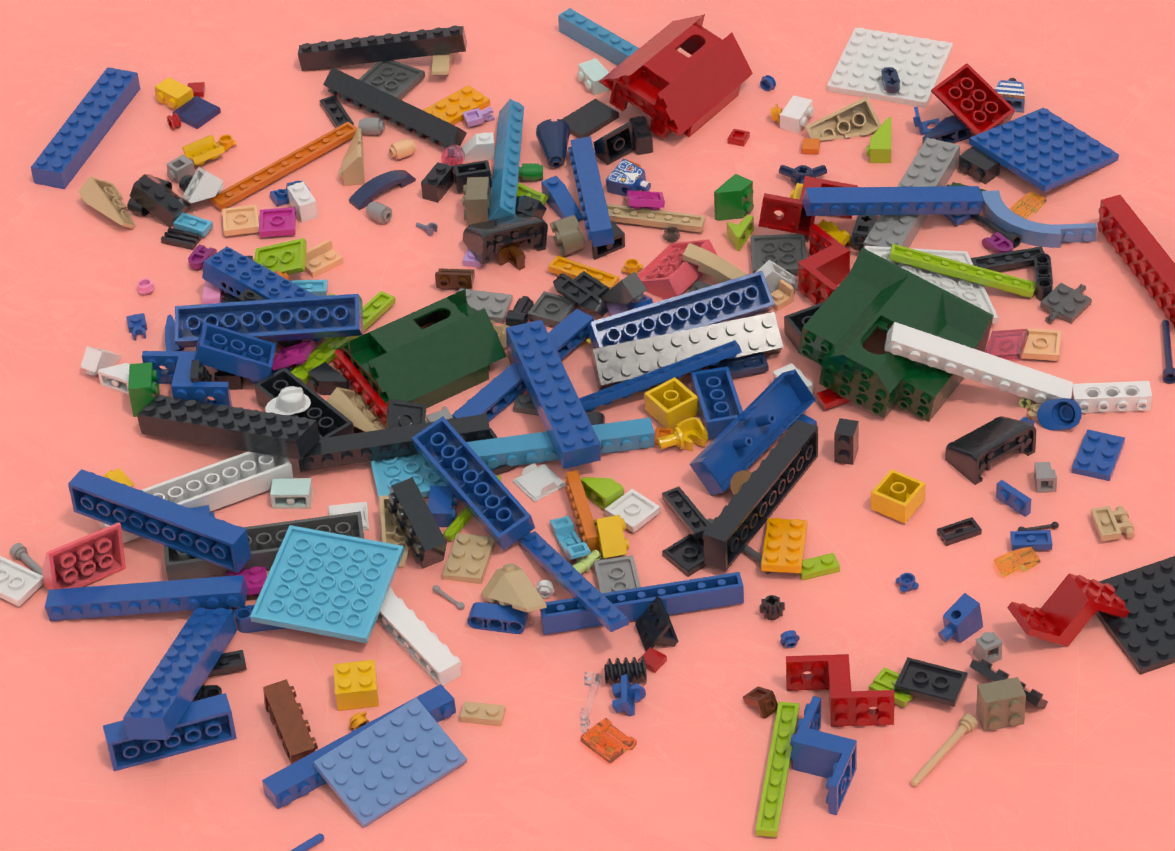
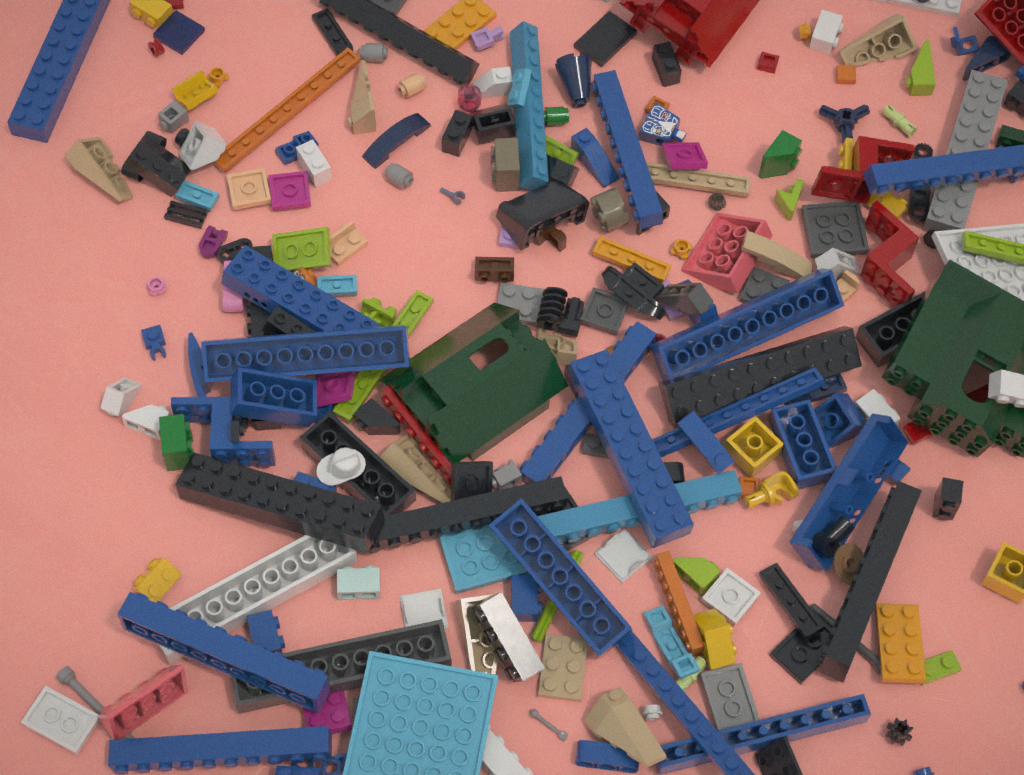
camera: 10 degrees left, 20 degrees up
(496, 151) = (519, 87): none -> medium azure plate
(501, 300) = (551, 308): none -> black piece
(615, 144) = (641, 77): black slope -> none
(625, 394) = (706, 442): none -> blue slope
(734, 463) = (829, 541): none -> black piece
(752, 383) = (839, 419): none -> blue slope
(854, 177) = (899, 120): none -> yellowish green pin

